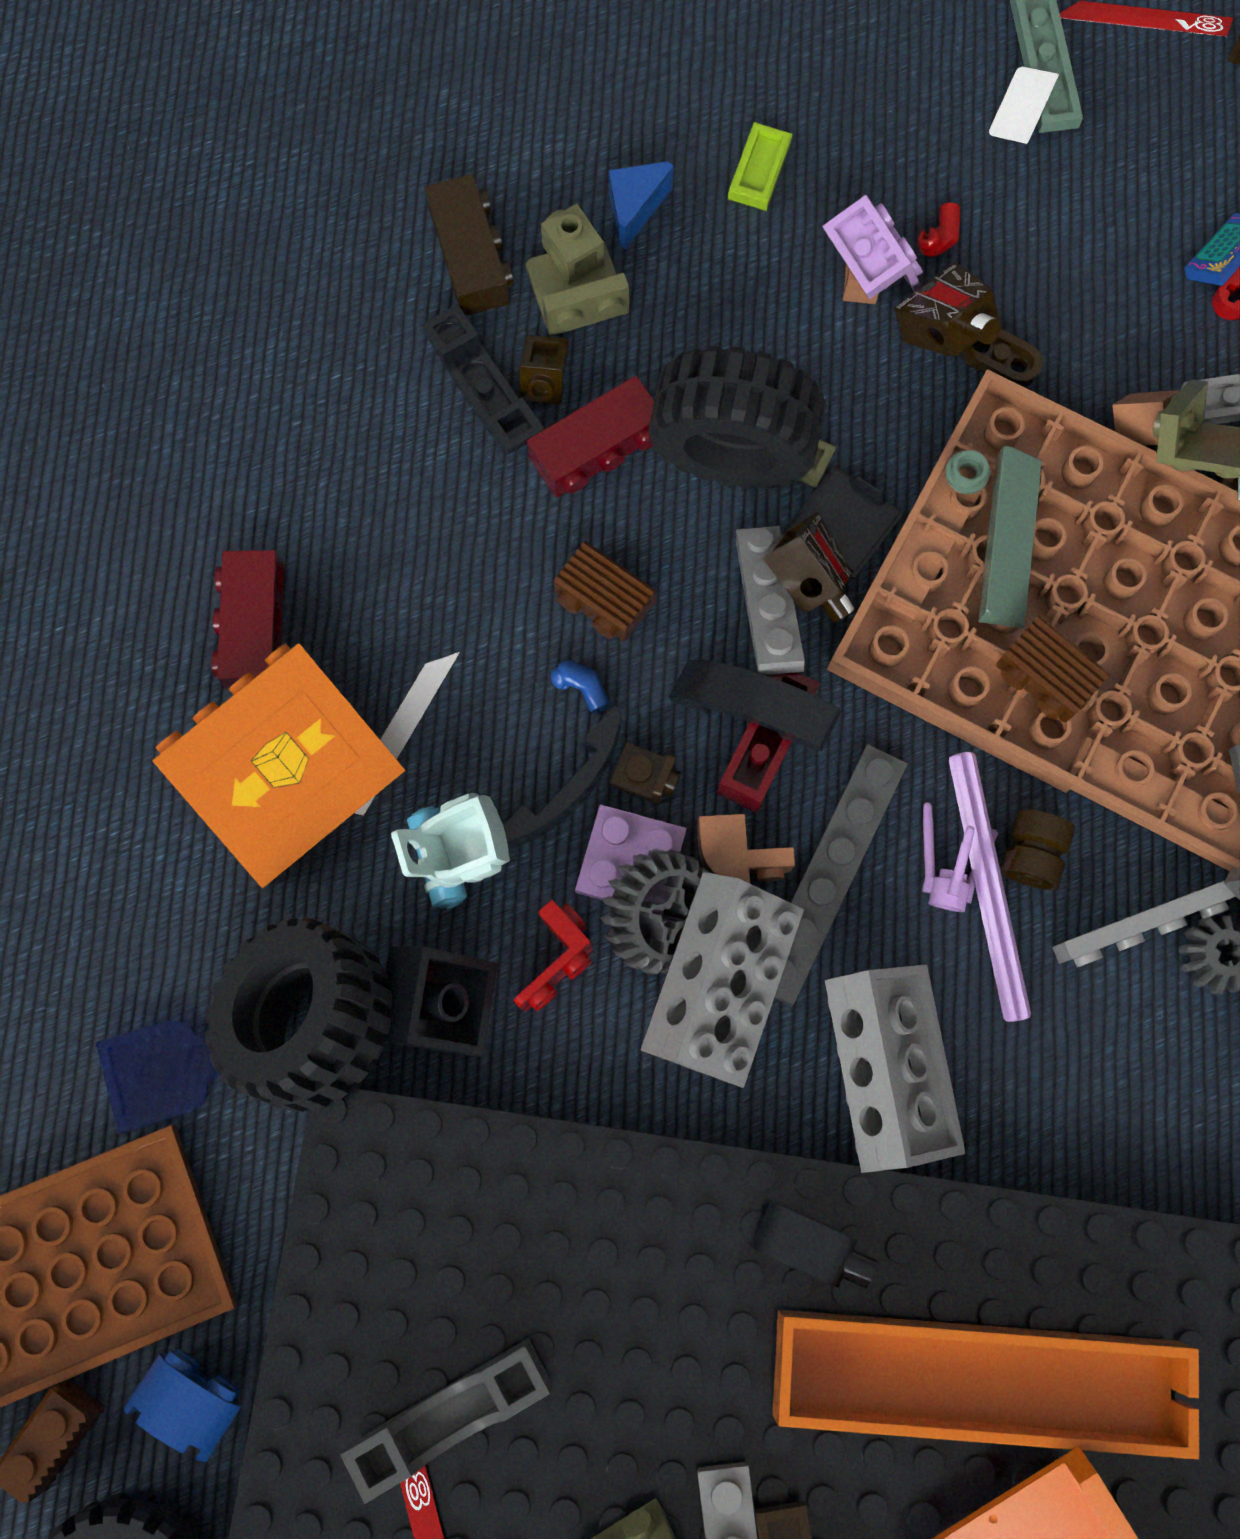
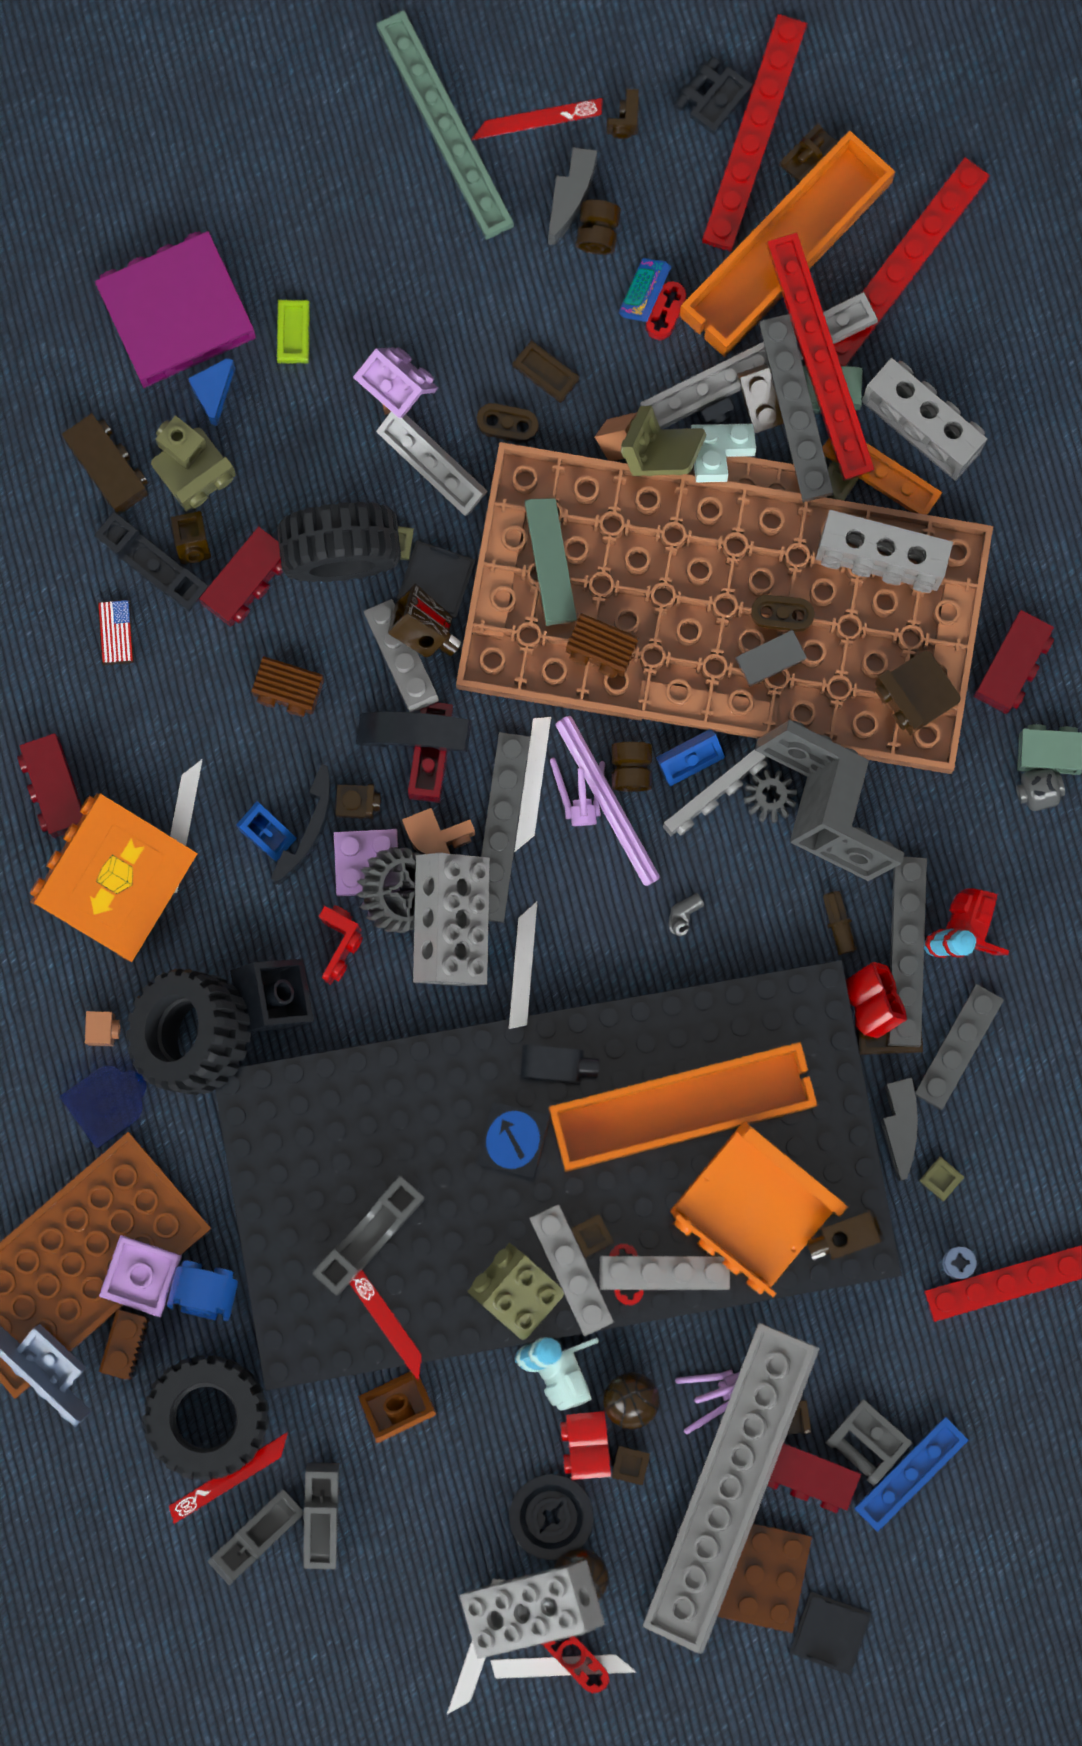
camera: 20 degrees left, 5 degrees up
(106, 1346) = (140, 1276): none -> lavender tile
(189, 966) = (101, 1028): none -> nougat plate
(406, 455) = (116, 632): none -> tile
(453, 847) = (248, 893): light aqua piece -> none
(508, 771) = (265, 831): none -> blue slope
(584, 679) = (293, 750): blue arm -> none
(623, 91) = (175, 308): none -> magenta panel
(712, 1343) = (513, 1140): none -> piece
(798, 1089) = (523, 968): none -> white sticker
(887, 371) = (432, 462): none -> light grey plate
(891, 825) = (533, 780): none -> white sticker
(894, 1088) = (578, 938): light grey brick -> none
(944, 236) = (441, 344): red arm -> none
(949, 313) = (461, 407): dark brown torso -> none
(975, 463) = (507, 514): sand green plate -> none
(1023, 104) = (467, 224): white sticker -> none
(1045, 1077) = (681, 913): none -> dark grey arm
(1068, 311) = (546, 371): none -> dark brown tile
(1122, 864) = (690, 757): none -> blue plate
(1167, 105) = (571, 192): none -> dark grey slope
(1191, 154) = (598, 227): none -> dark brown wheel

